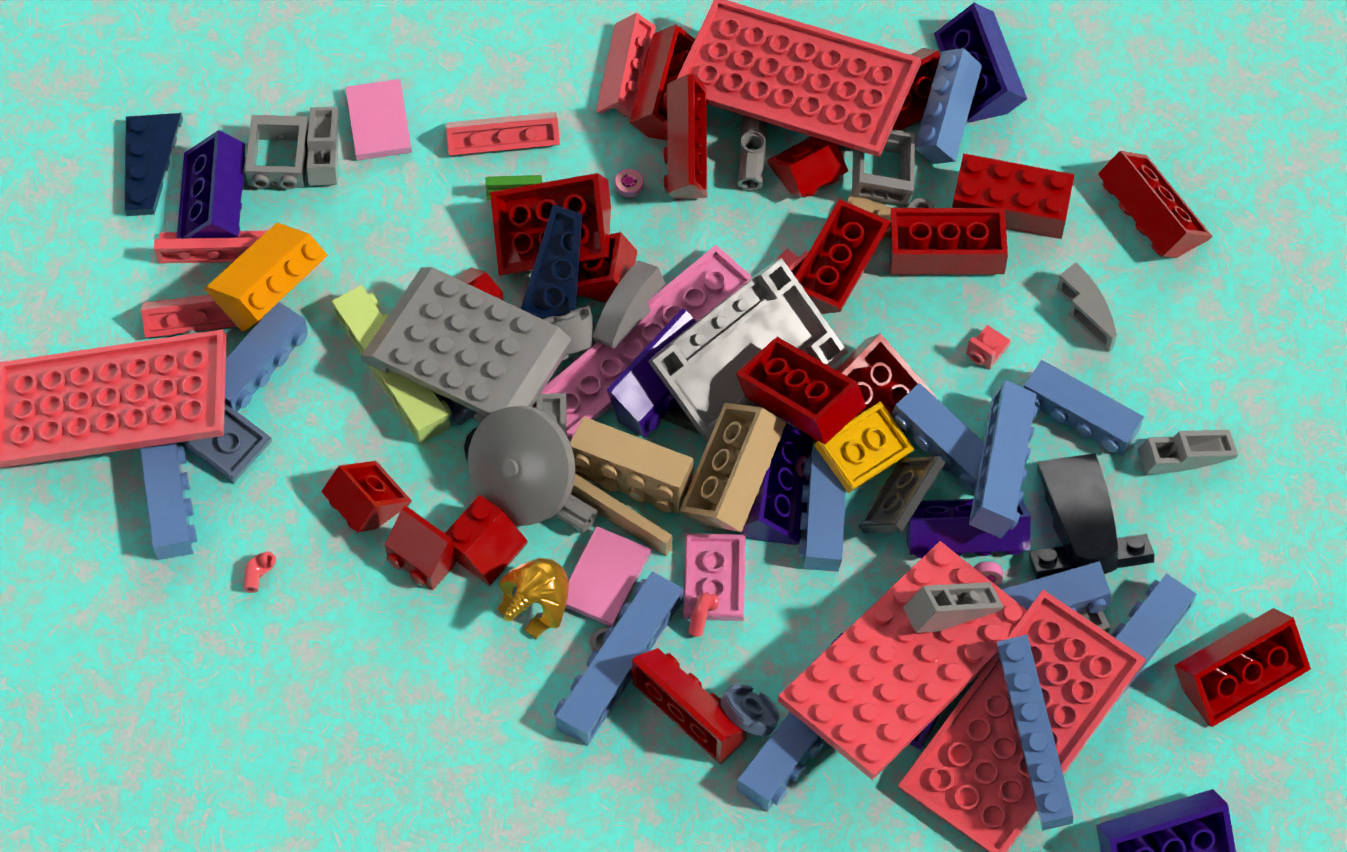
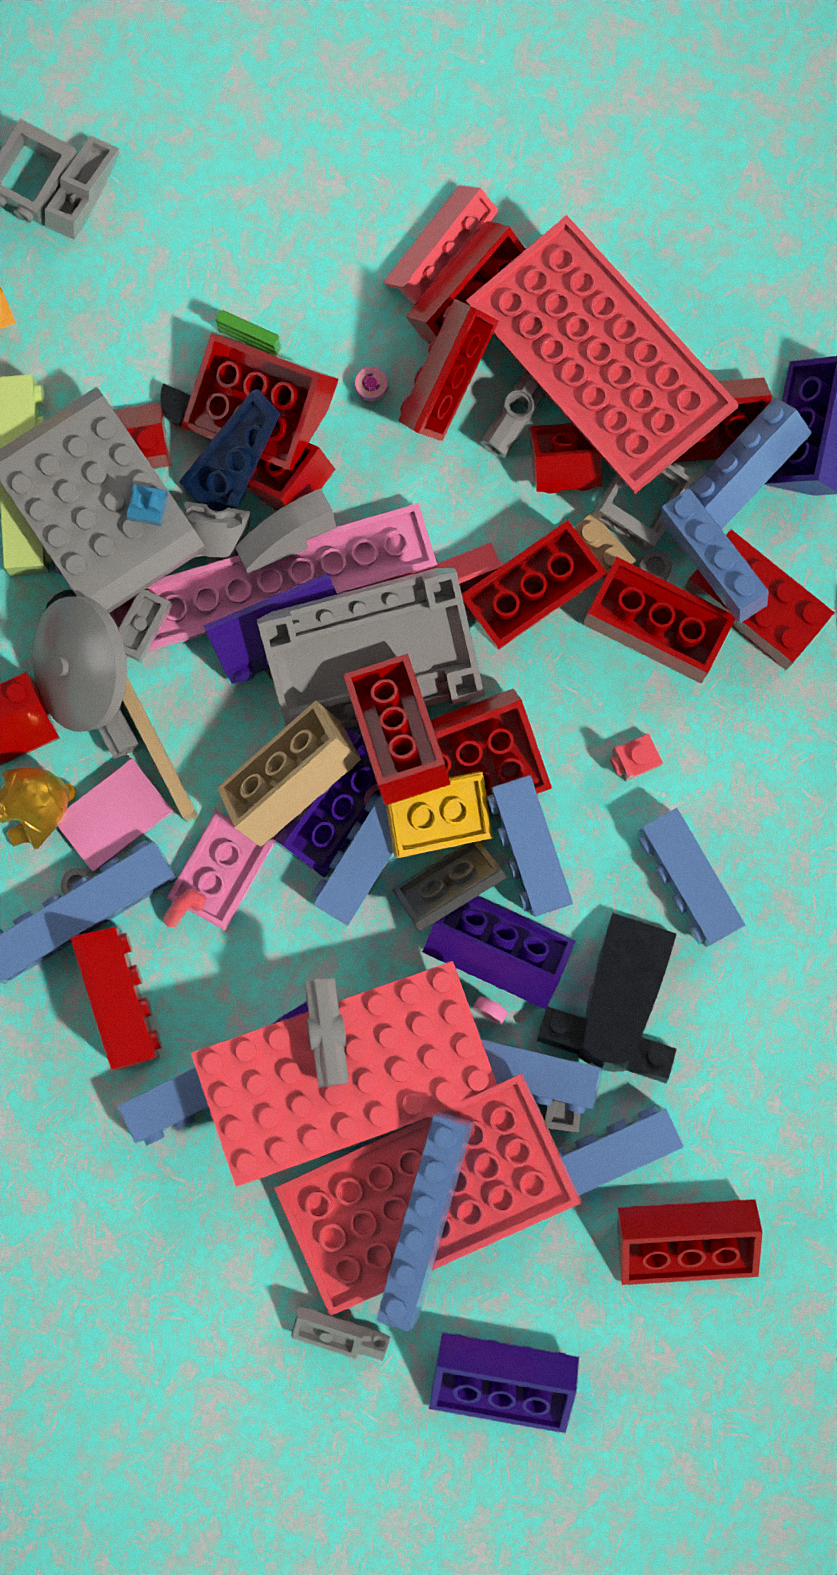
camera: 30 degrees right, 20 degrees up
(378, 119) = (154, 182): bright pink tile -> none
(483, 260) = (174, 403): none -> black tile
(502, 133) = (271, 261): coral panel -> none
(514, 323) = (147, 505): none -> dark azure tile
(631, 465) = (187, 706): tan brick -> none
(750, 711) = (170, 1036): sand blue tile -> none
(877, 625) = (326, 1032): none -> light grey piece
(950, 605) = (415, 1049): light grey slope -> none
(964, 169) = (714, 556): none -> medium blue brick
(1004, 460) = (567, 906): medium blue brick -> none
(1087, 305) = (766, 765): light grey slope -> none
(1186, 451) = (772, 980): light grey slope -> none

